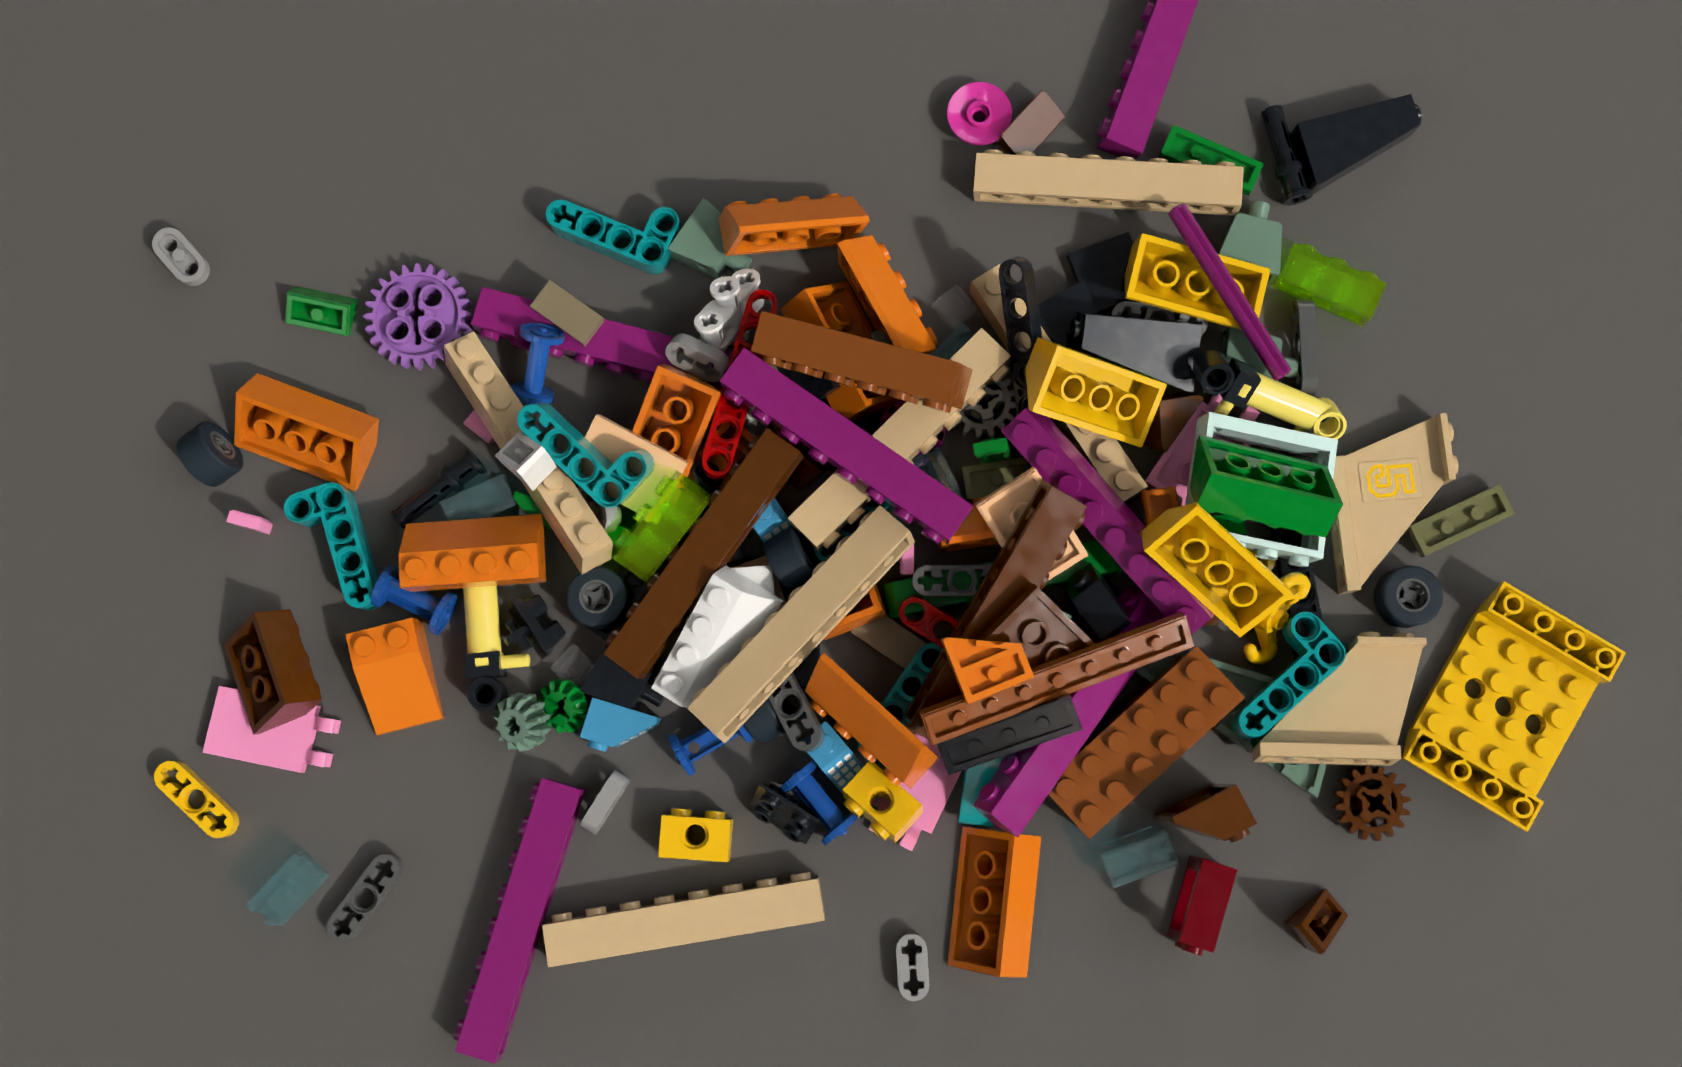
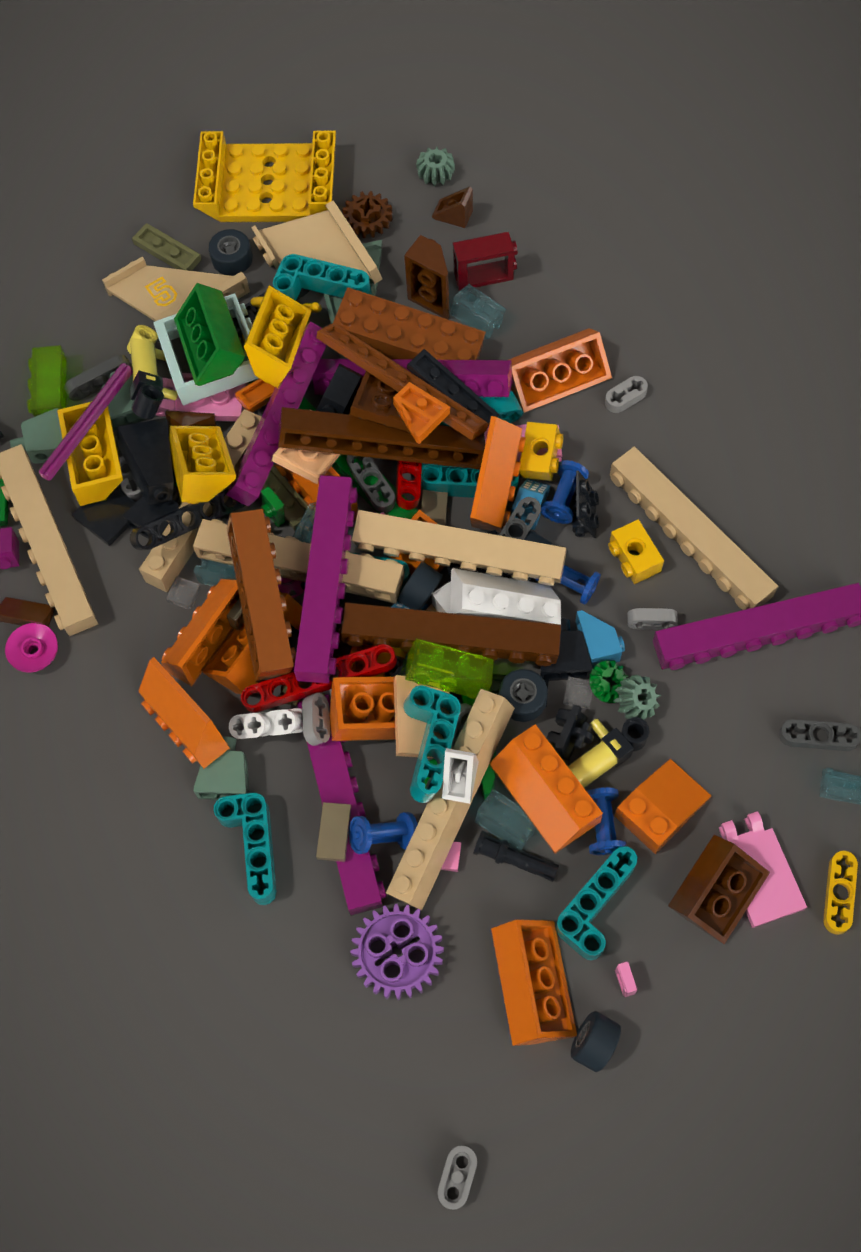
camera: 120 degrees left, 15 degrees down
(320, 310) = (434, 1035): green slope -> none
(1407, 950) = (435, 166): none -> sand green gear

